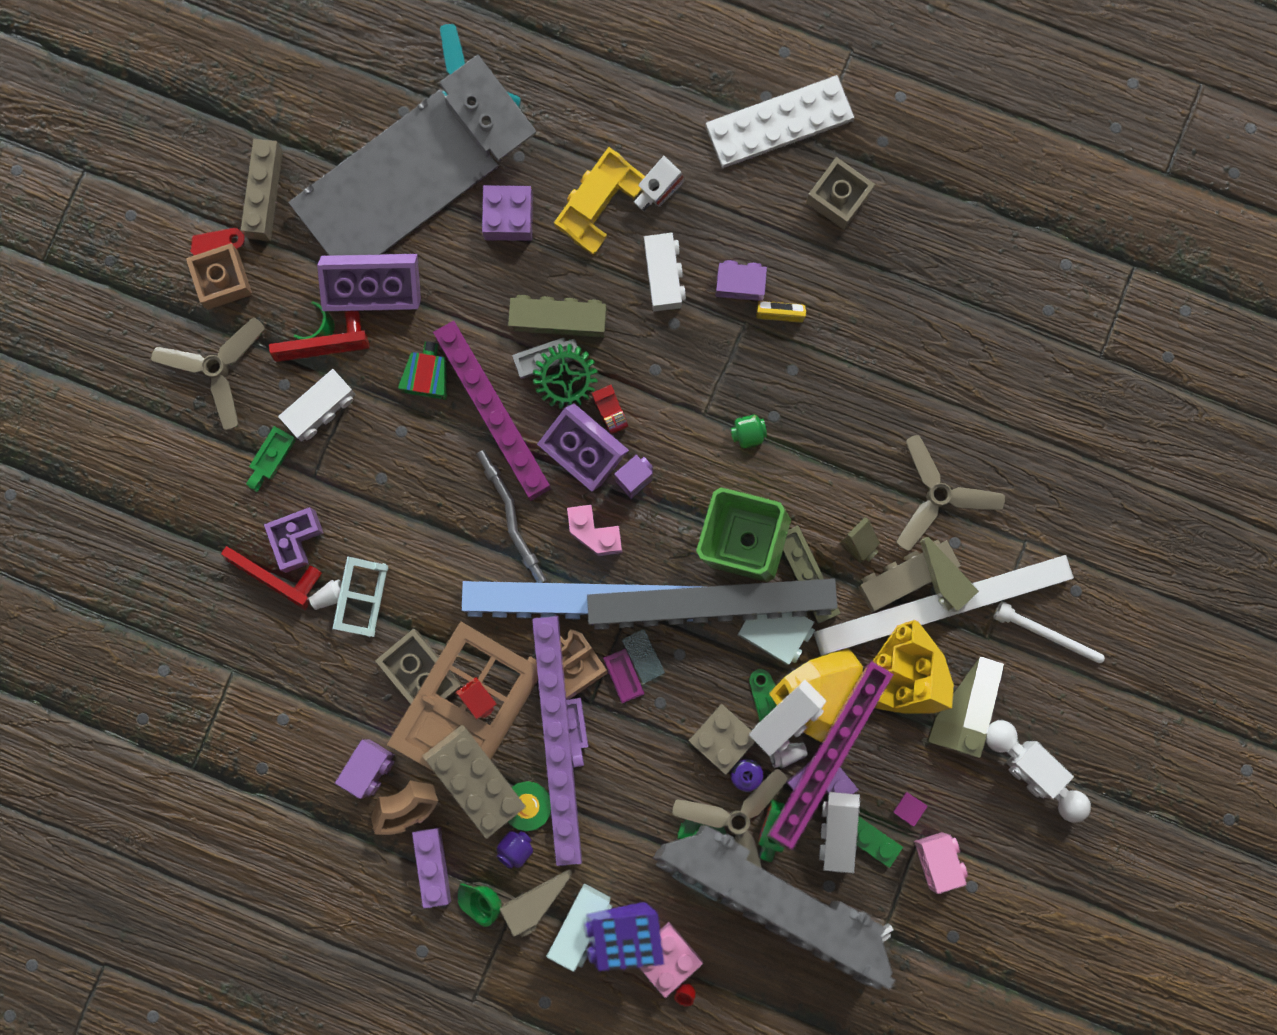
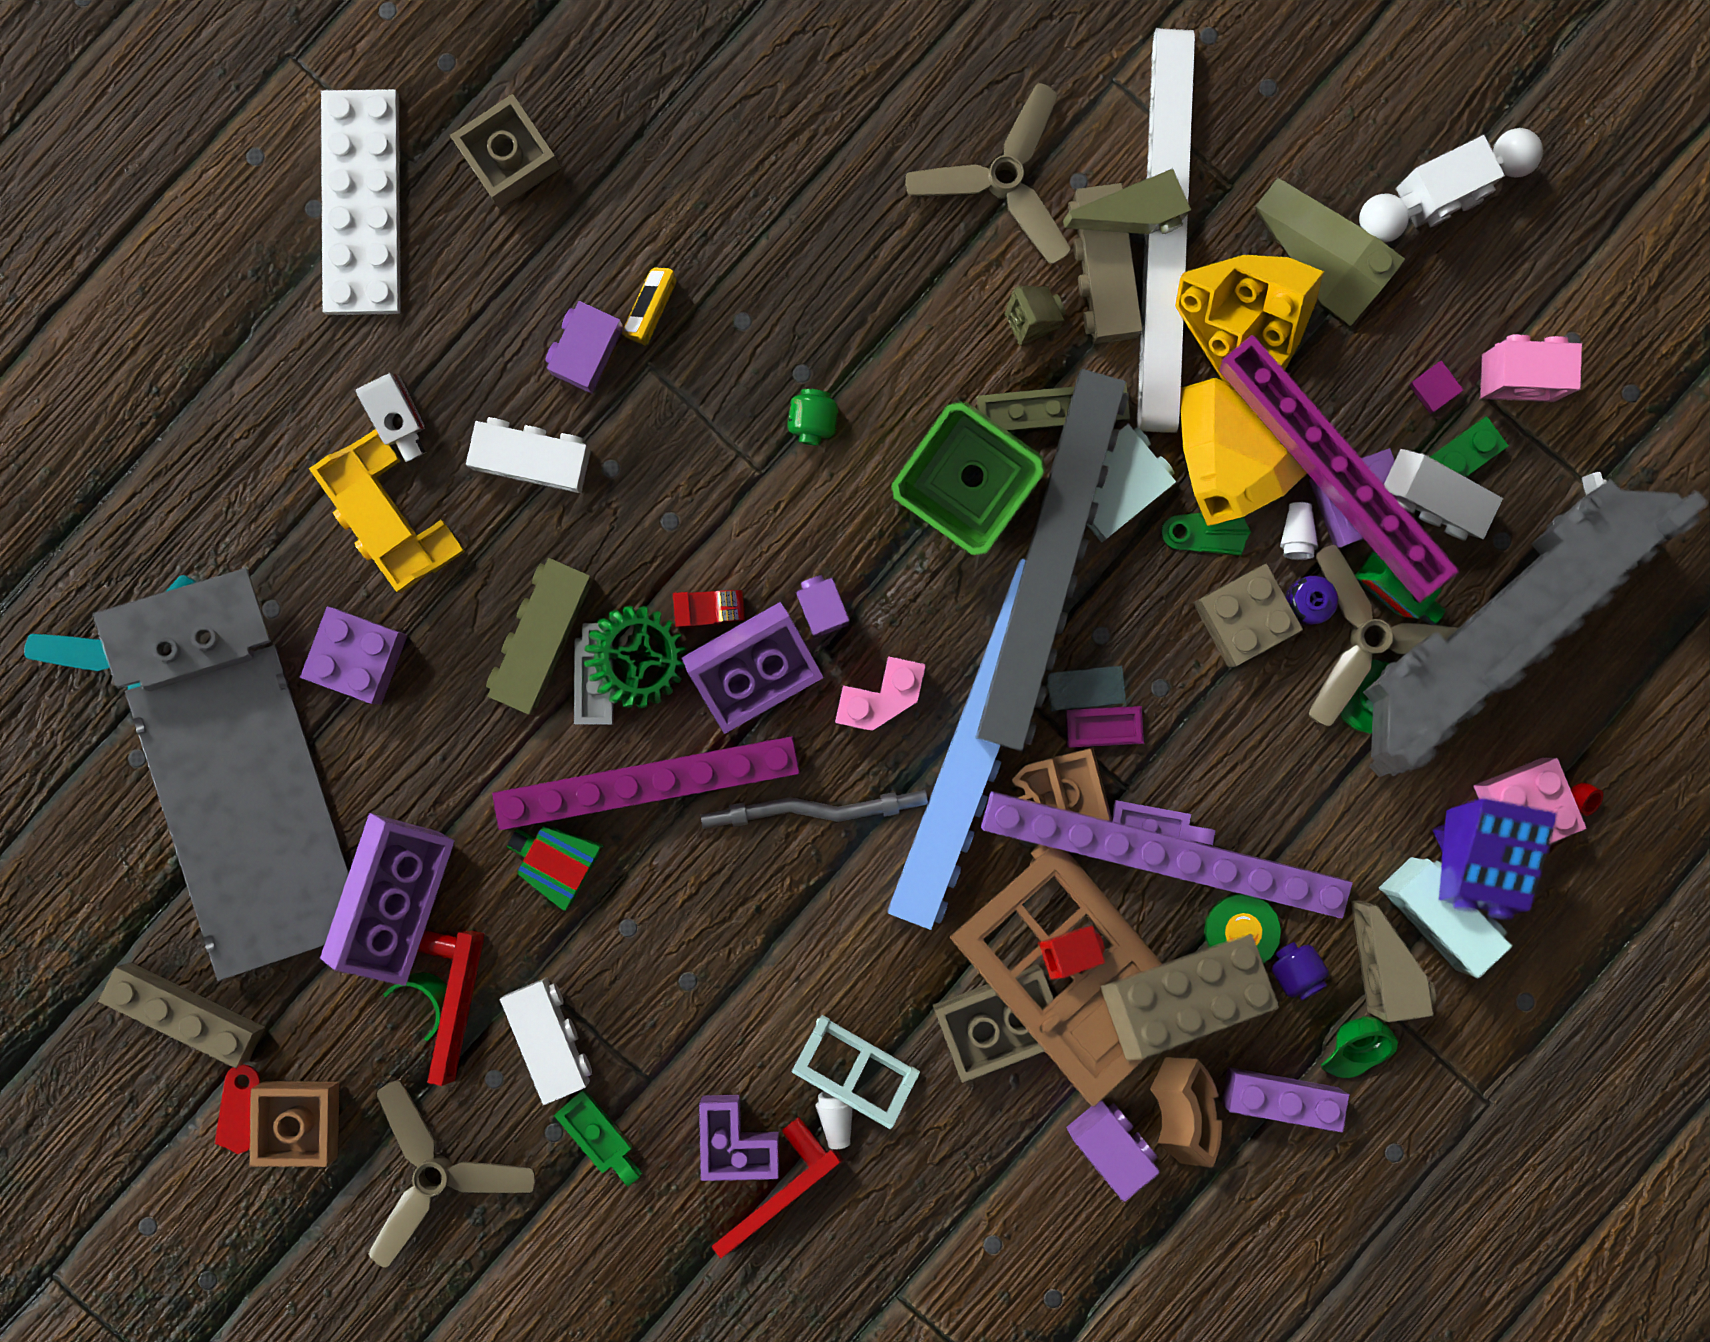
camera: 80 degrees left, 5 degrees up
(788, 718) = (1259, 509): white brick -> none
(1006, 613) = (1207, 147): white piece -> none

